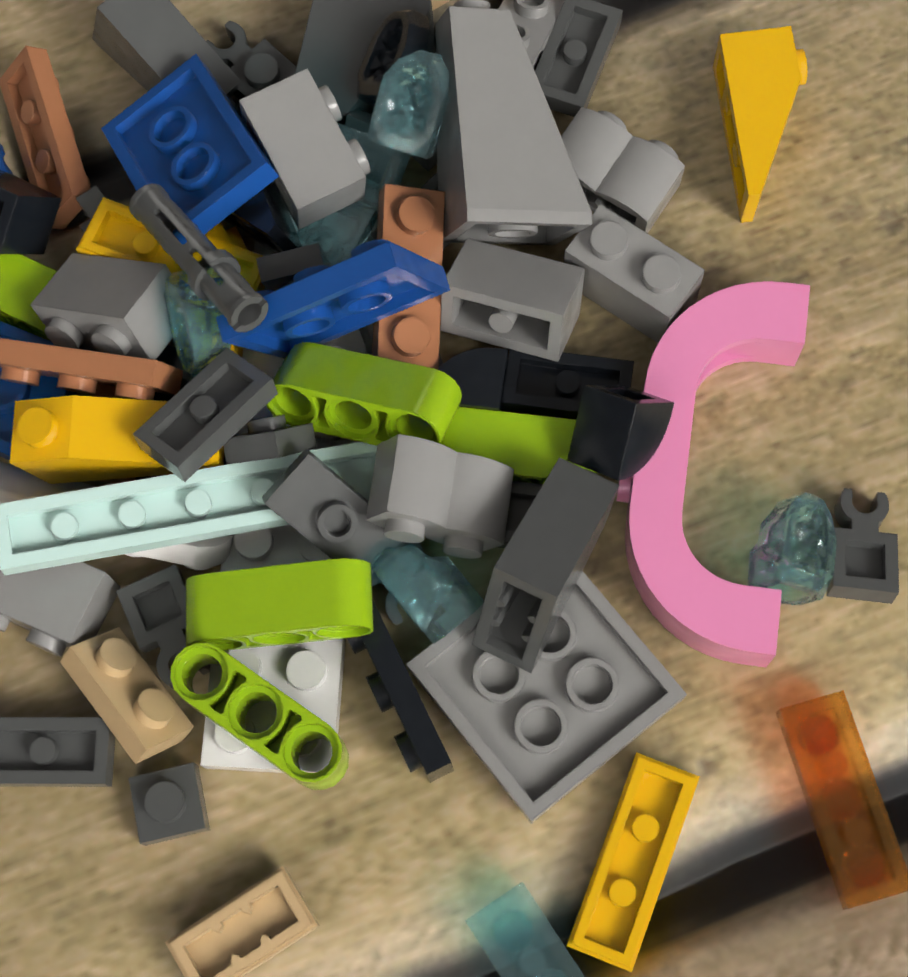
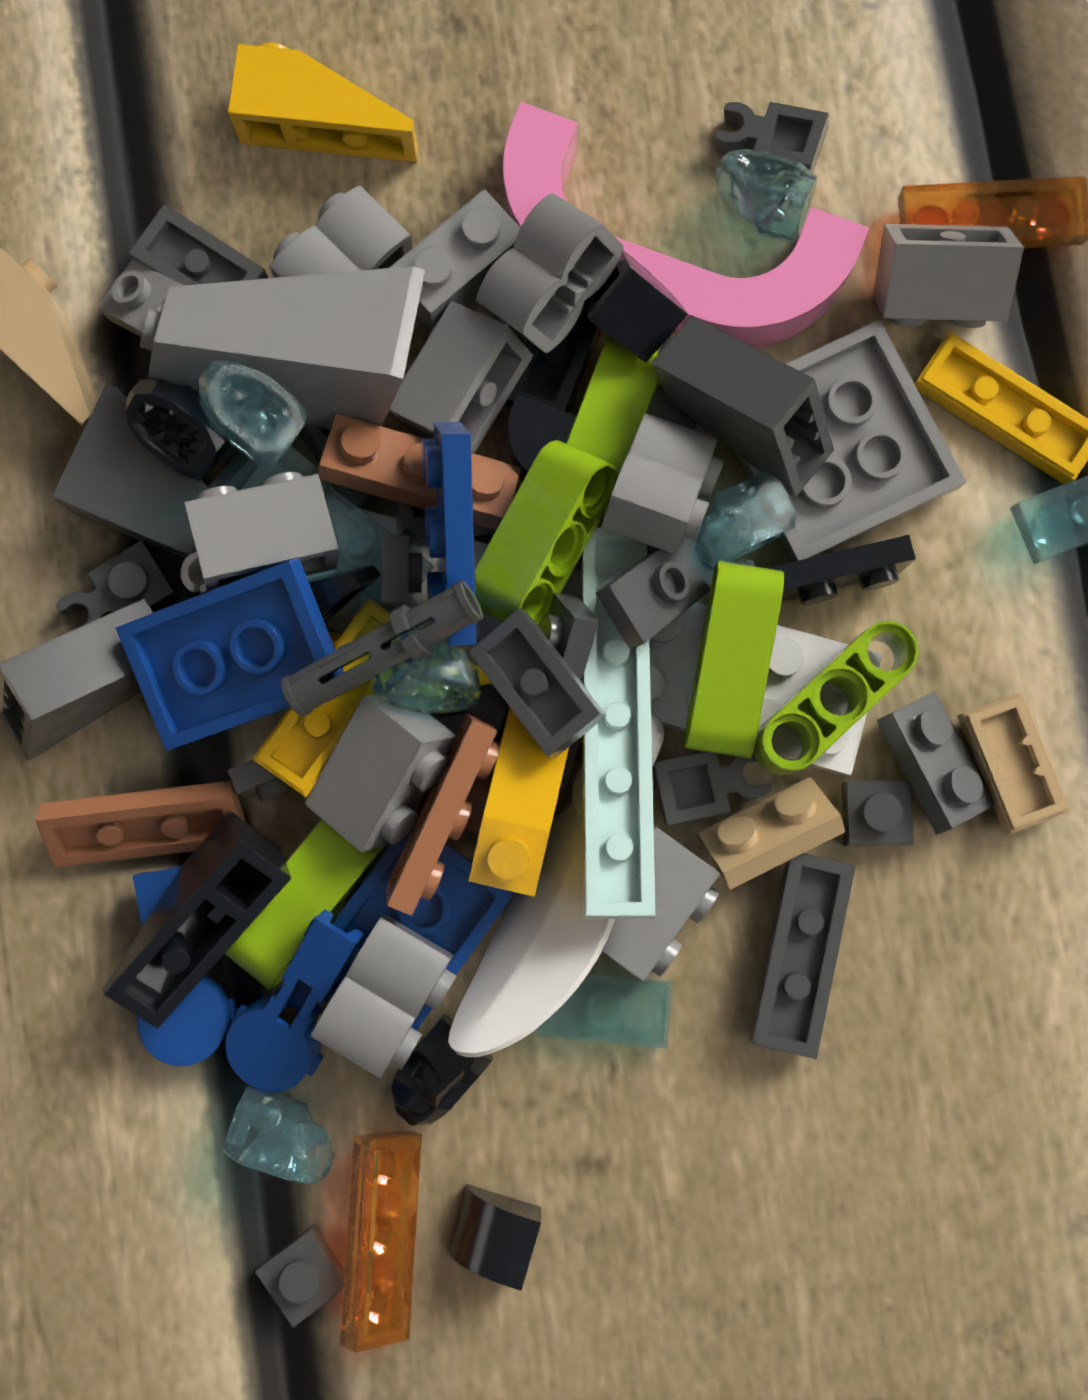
camera: 85 degrees left, 10 degrees up
(228, 851) = (936, 763): none -> dark grey plate
(624, 340) = (550, 272): none -> light grey brick
(753, 750) = (946, 274): none -> light grey brick

